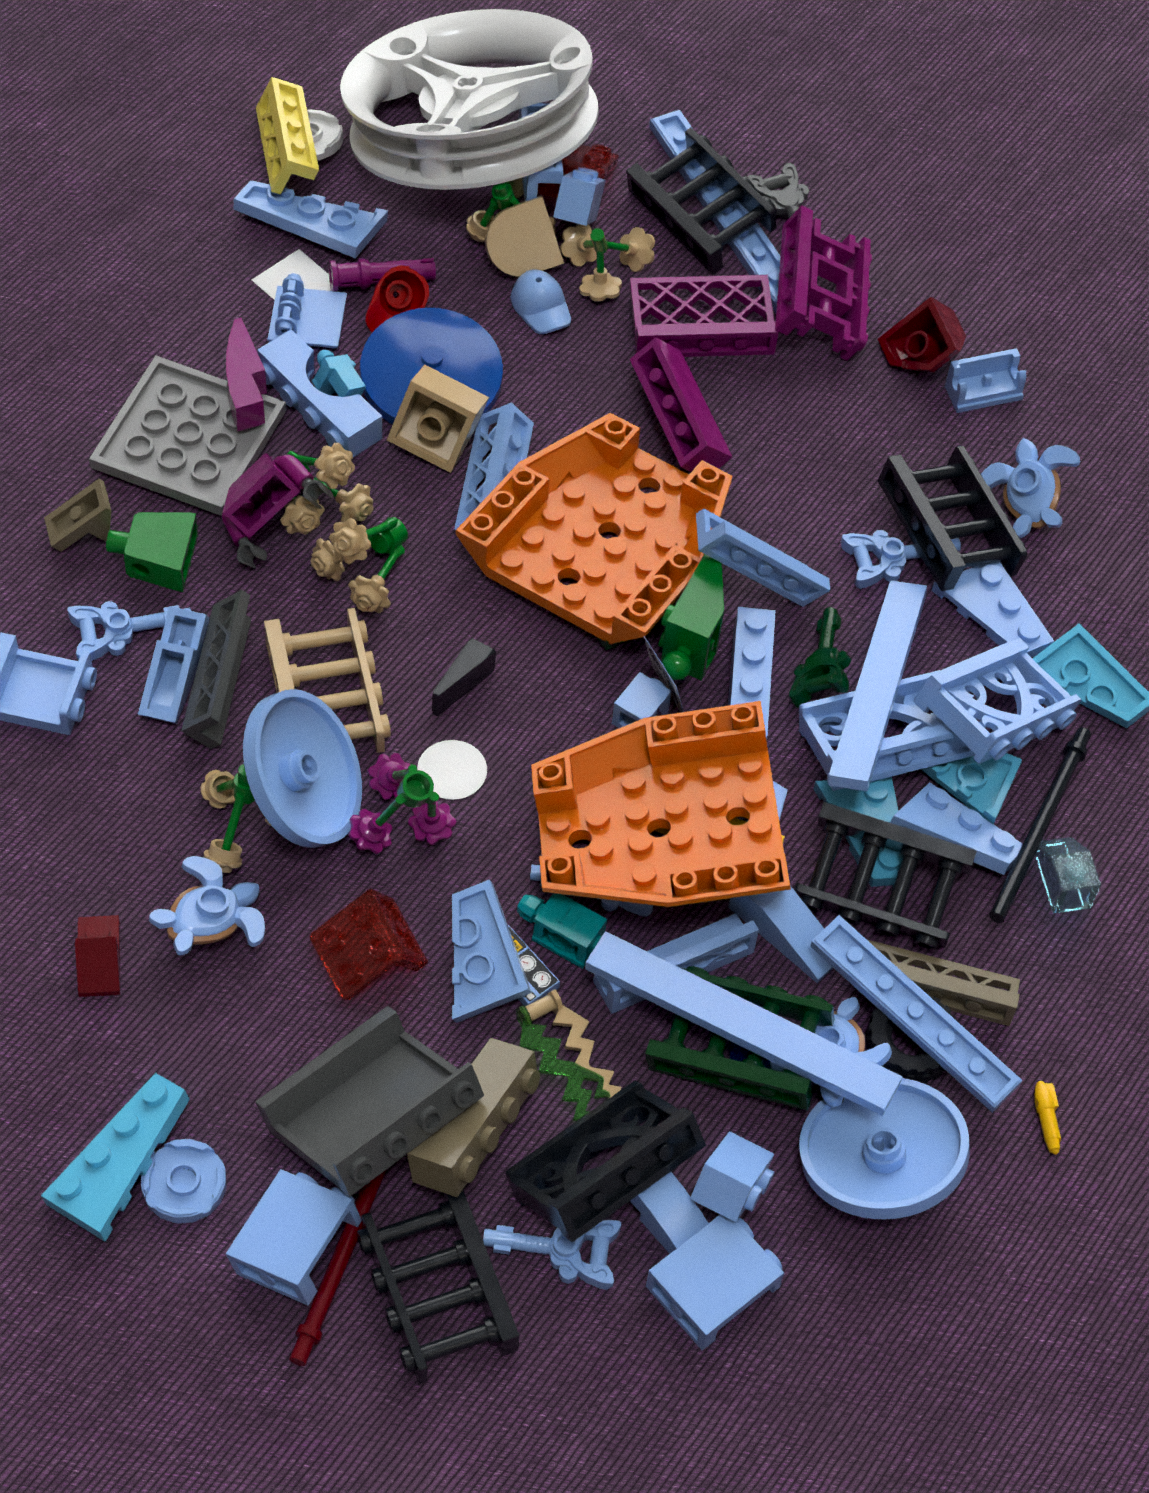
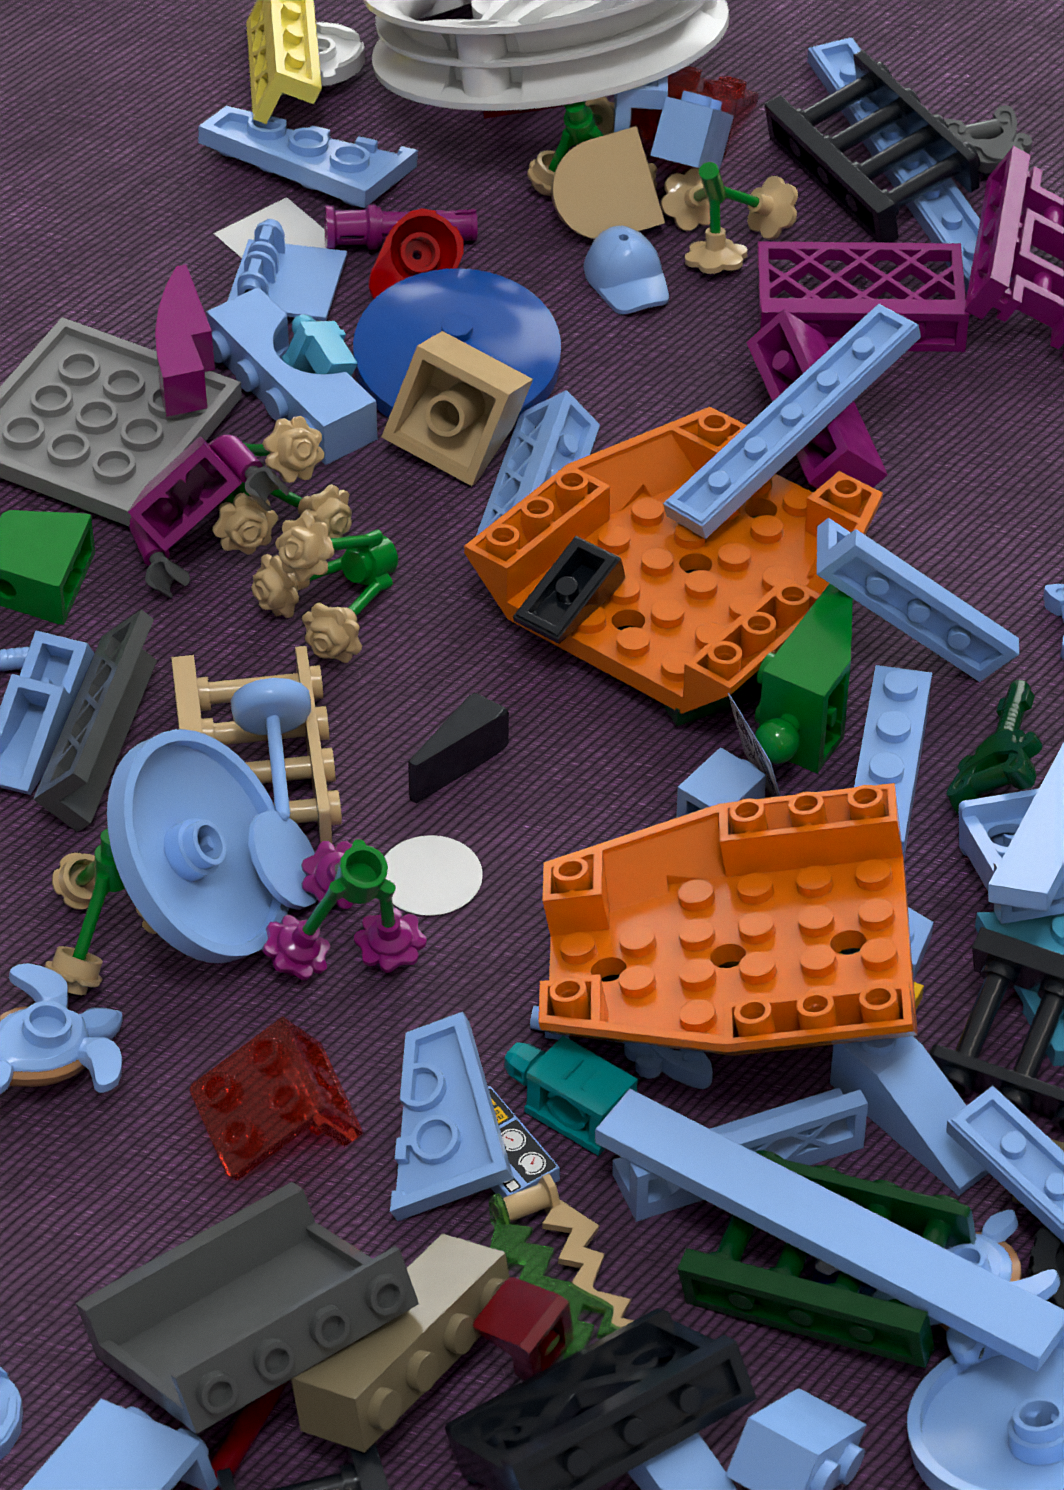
camera: 10 degrees right, 10 degrees down
(349, 753) = (274, 839): none -> light blue piece
(529, 559) = (571, 590): none -> black slope
(551, 1101) = (527, 1325): none -> dark red slope
(668, 424) = (791, 421): none -> light blue tile

